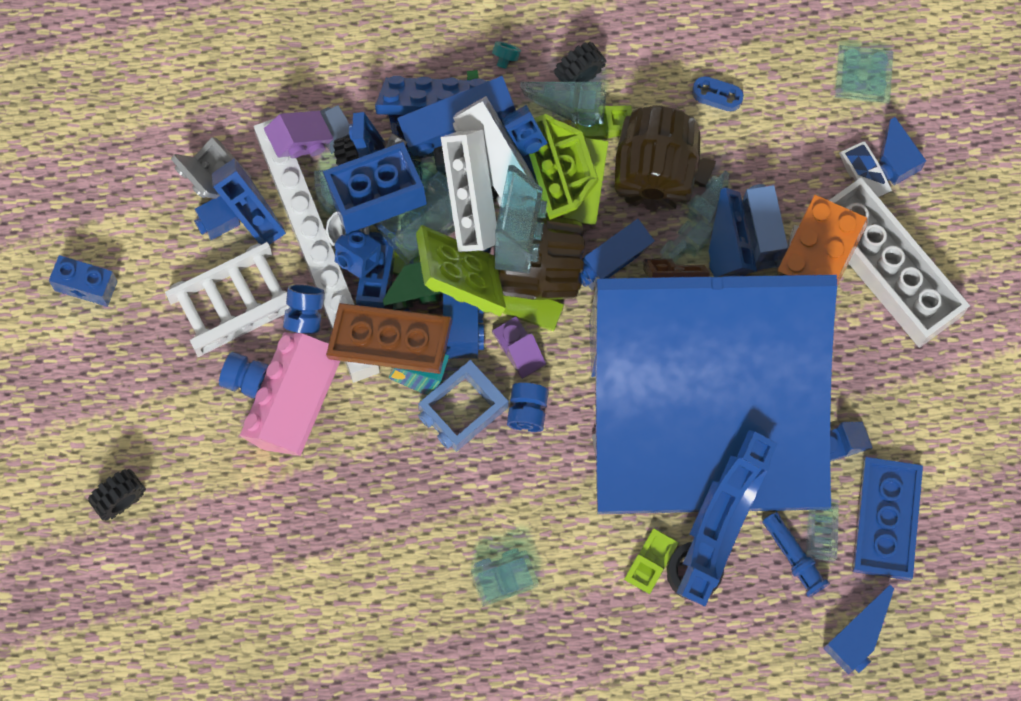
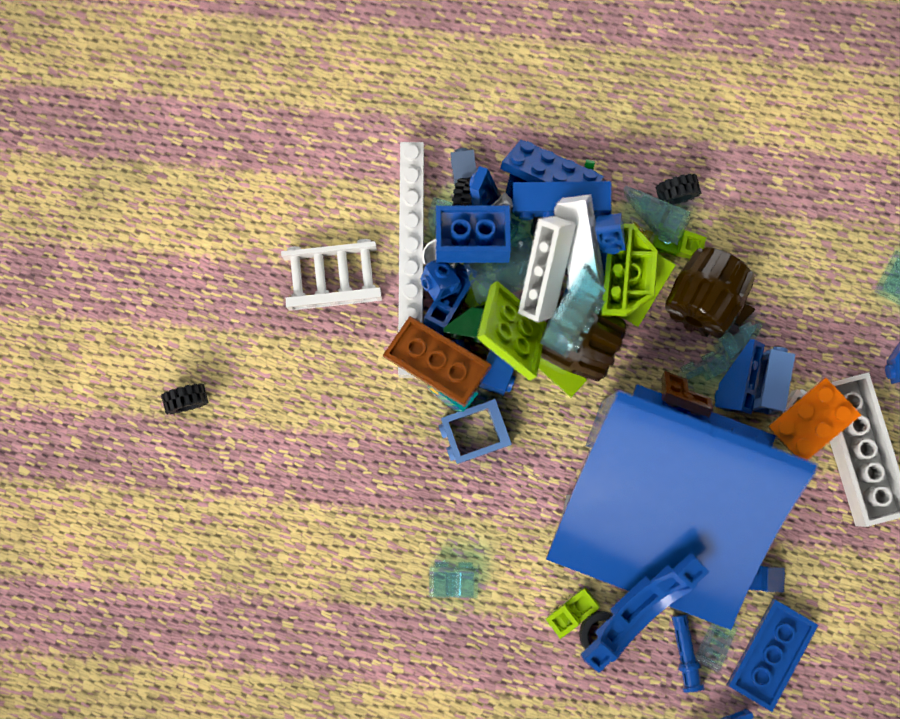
camera: 25 degrees right, 10 degrees up
(83, 281) = (223, 217): blue brick -> none
(202, 165) = (354, 166): light grey bracket -> none
(215, 218) = (344, 204): blue brick -> none
(241, 374) = (315, 339): blue wheel -> none
(247, 202) = (371, 202): blue slope -> none
(290, 395) = (345, 372): bright pink slope -> none
(298, 134) = (432, 163): medium lavender brick -> none
(303, 310) = (380, 308): blue wheel -> none
(505, 53) = (623, 155): teal tile -> none
(519, 347) = (538, 401): medium lavender slope -> none
(528, 405) = (525, 453): blue wheel -> none
(615, 253) = (644, 358): blue window -> none
(713, 98) = (783, 249): blue beam -> none
(862, 164) = (874, 360): slope -> none

